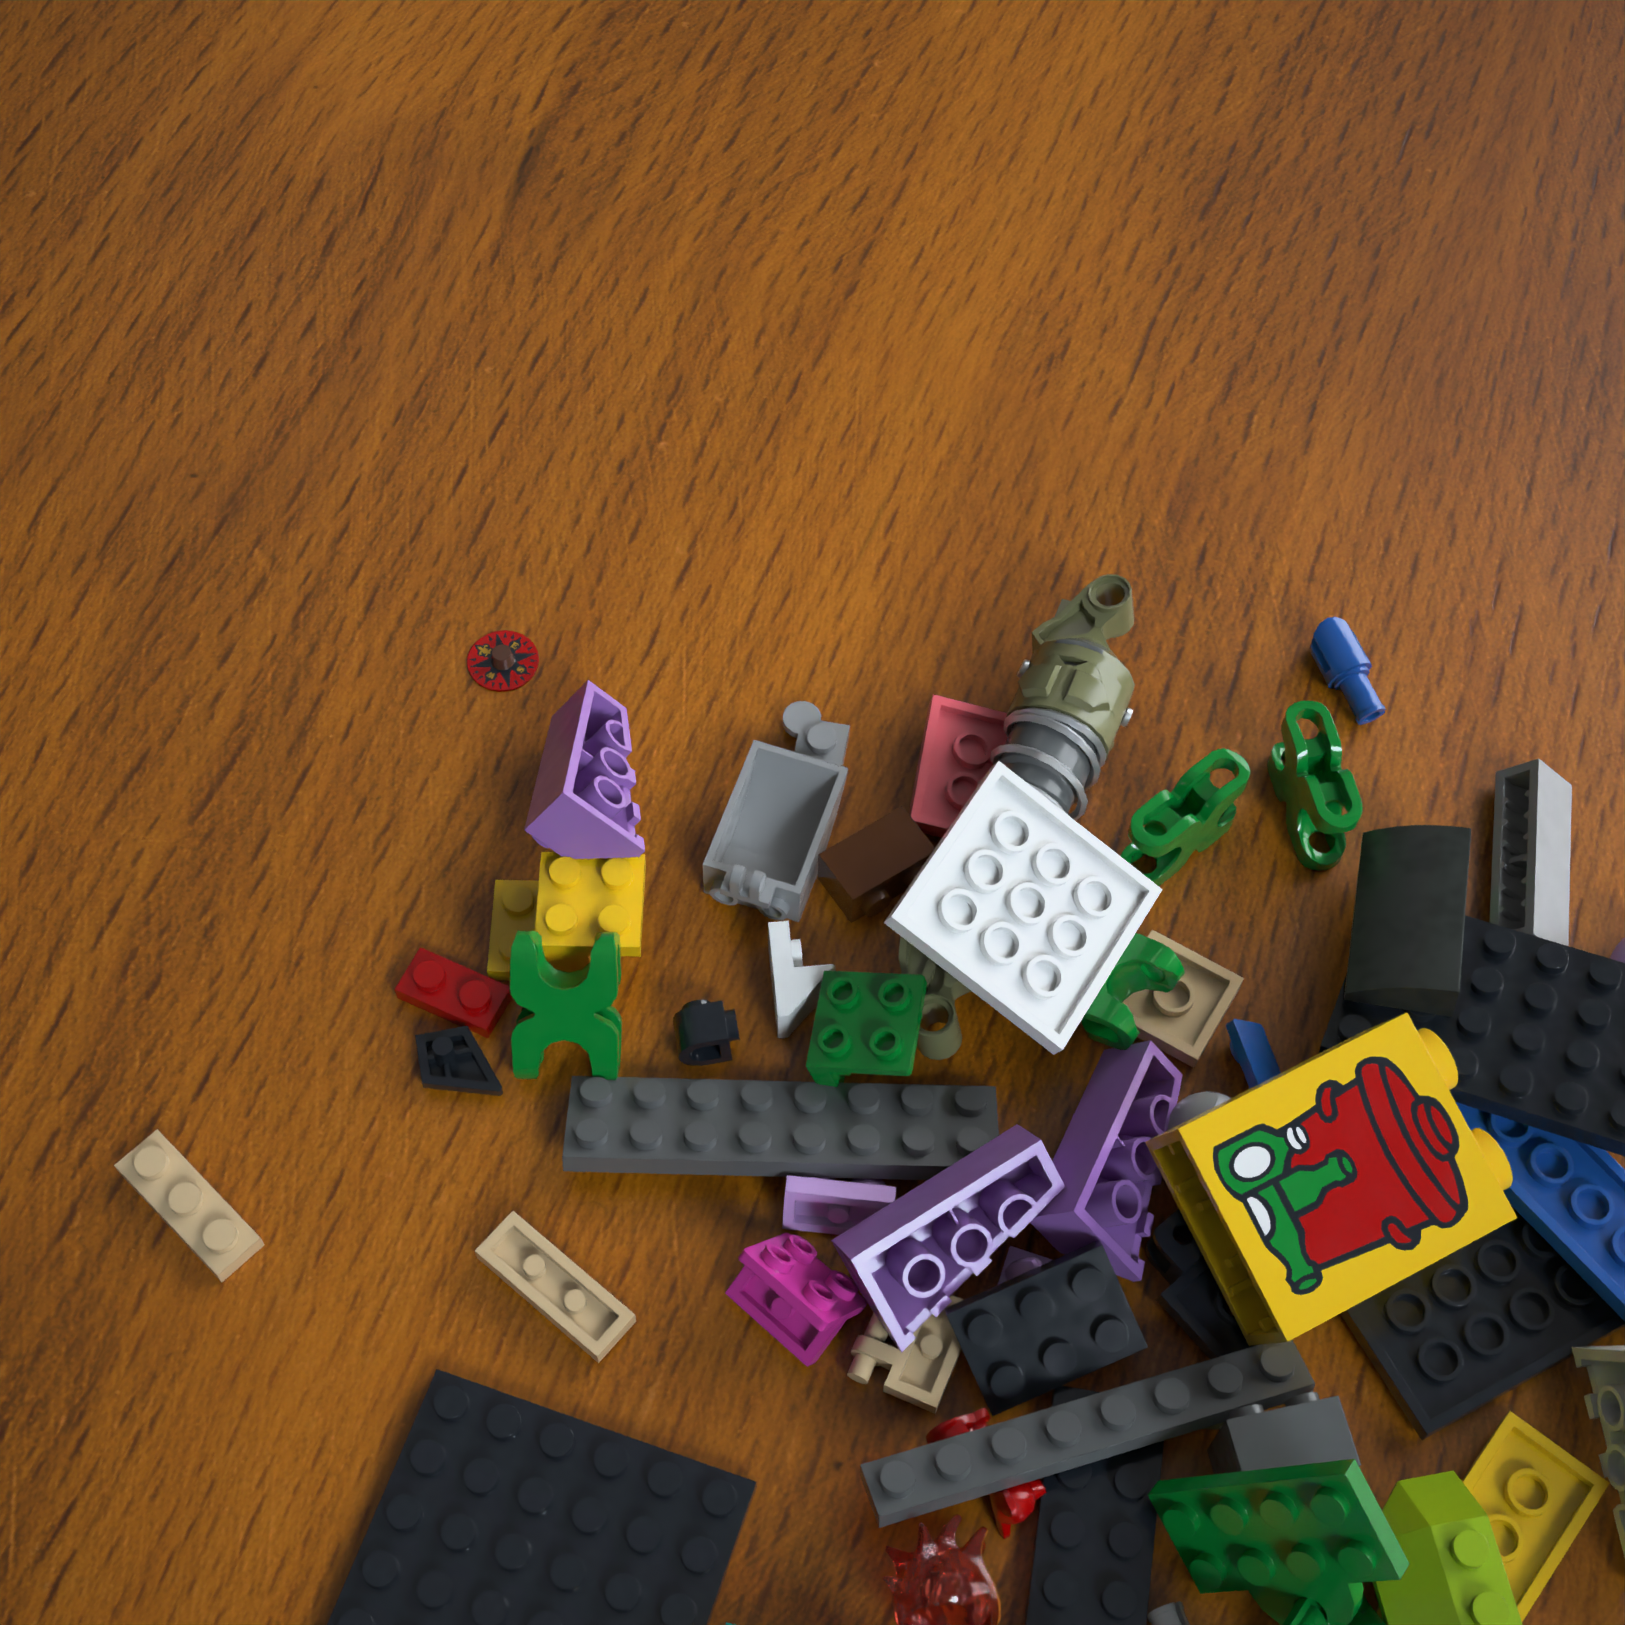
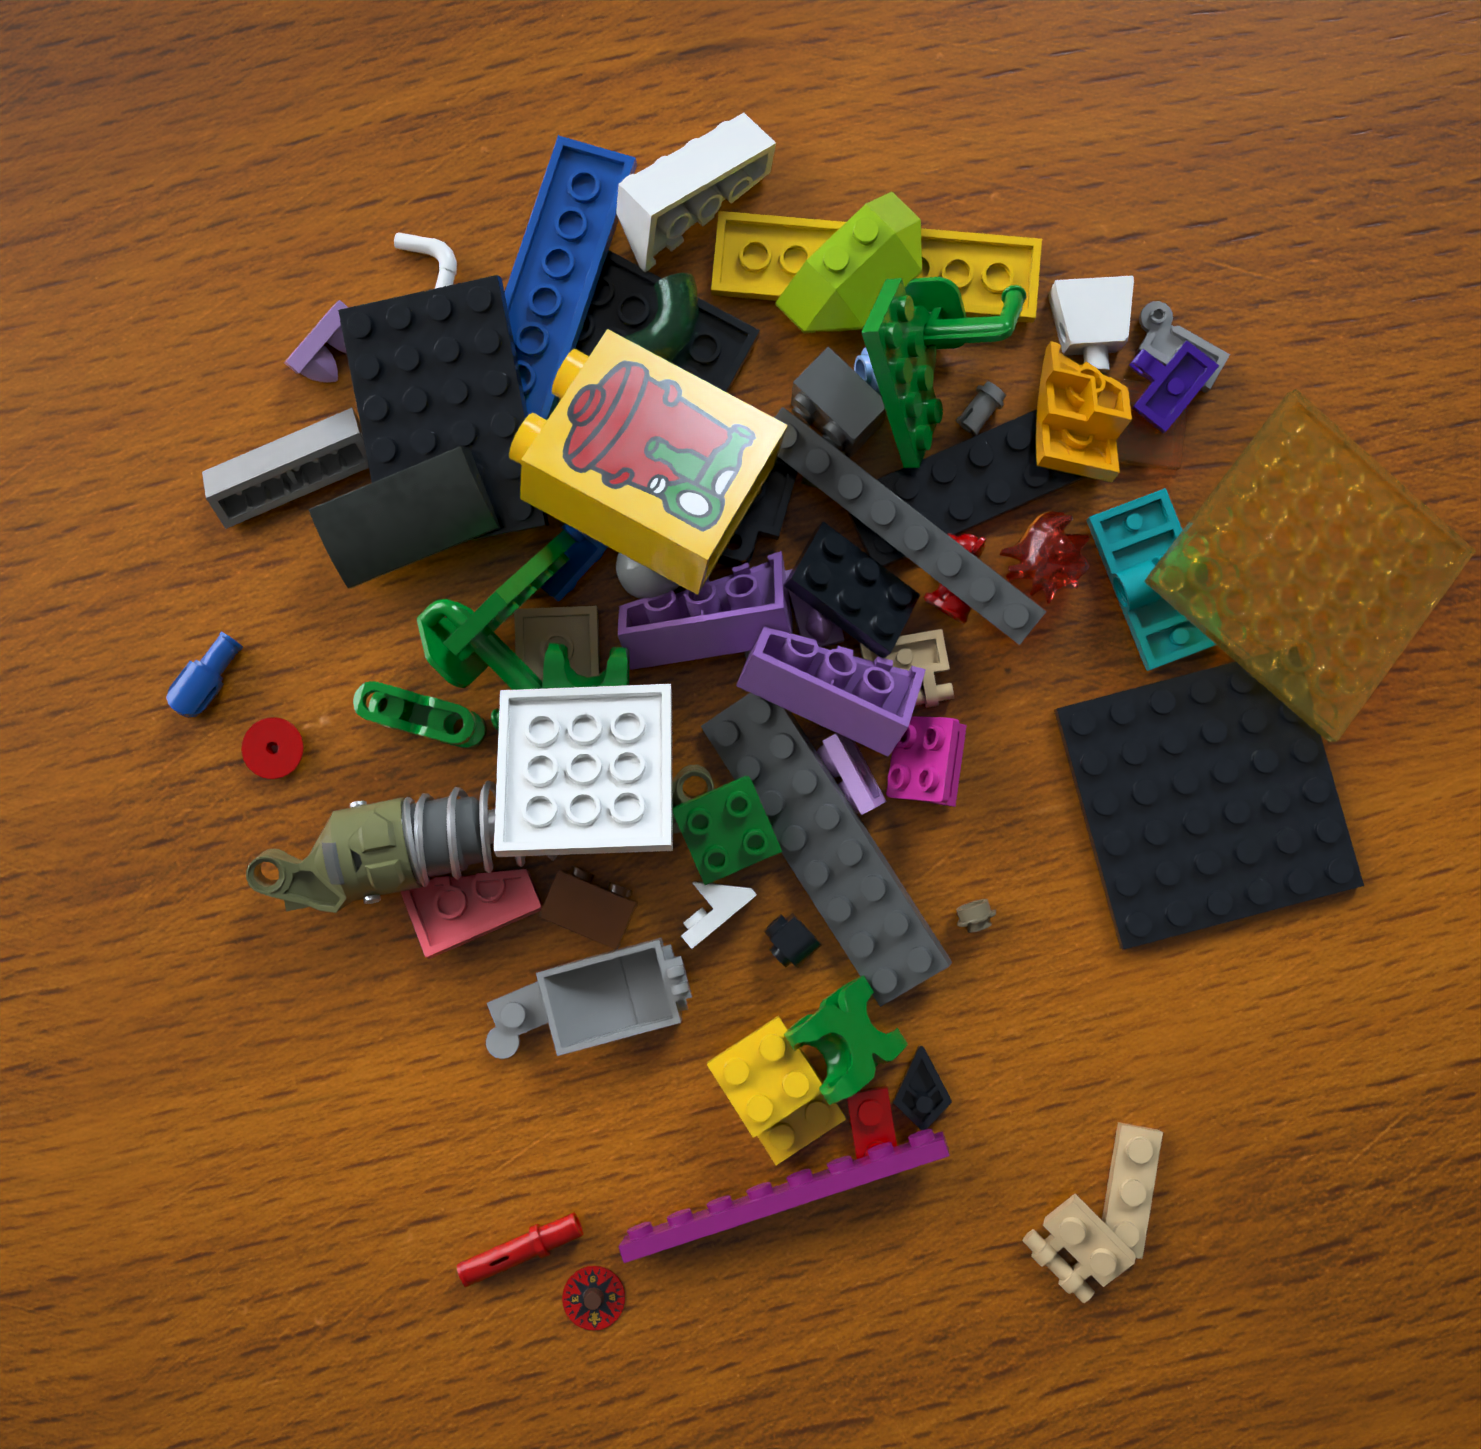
camera: 120 degrees left, 25 degrees up
(180, 1118) = (1087, 1240): none -> tan plate
(457, 873) = (768, 1200): none -> magenta plate
(555, 1286) = (1023, 915): tan plate -> none
(585, 781) = (673, 1150): medium lavender wedge -> none
(592, 638) = (520, 1249): none -> red pin
(592, 1235) = (975, 915): none -> dark tan plate
(1234, 690) = (272, 748): none -> red piece
(1240, 896) = (466, 639): none -> green plate
(1314, 785) = (329, 642): green piece -> none
(1485, 1323) = (674, 319): none -> clear green cylinder

